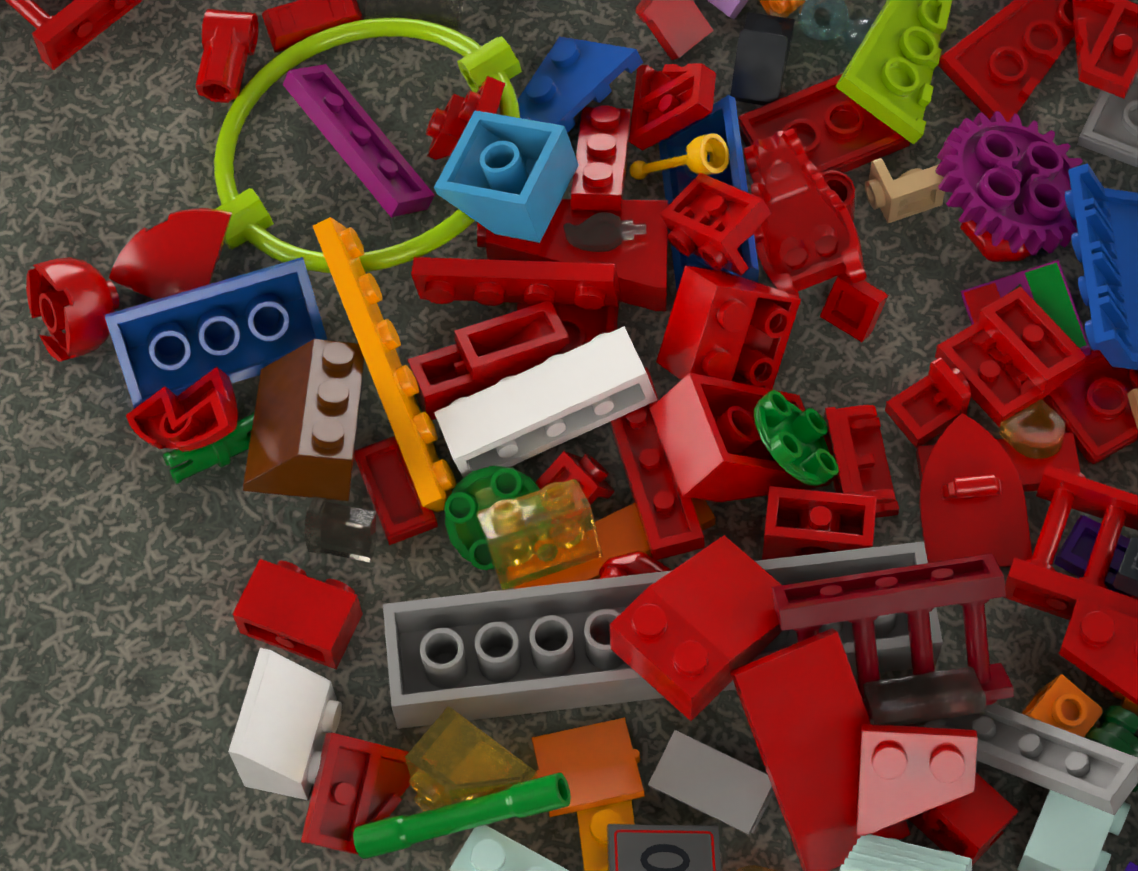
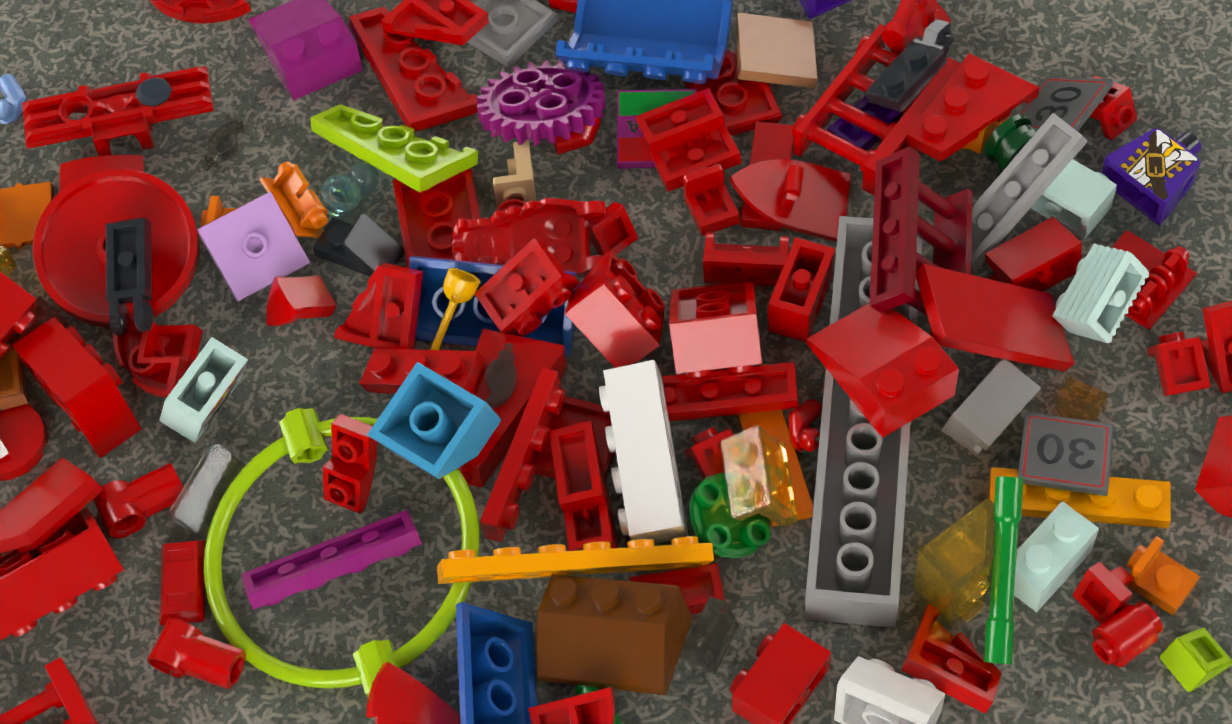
camera: 75 degrees left, 5 degrees down
(572, 78) = (335, 381): blue wing -> none
(594, 761) = (953, 489): orange piece -> none
(795, 439) = (719, 283): green dish -> none
(911, 772) = (1024, 262): wing -> none
(924, 697) = (969, 237): clear smoke tile -> none
(1034, 431) = (753, 140): clear orange tile -> none
(1064, 707) = (979, 171): orange bracket -> none

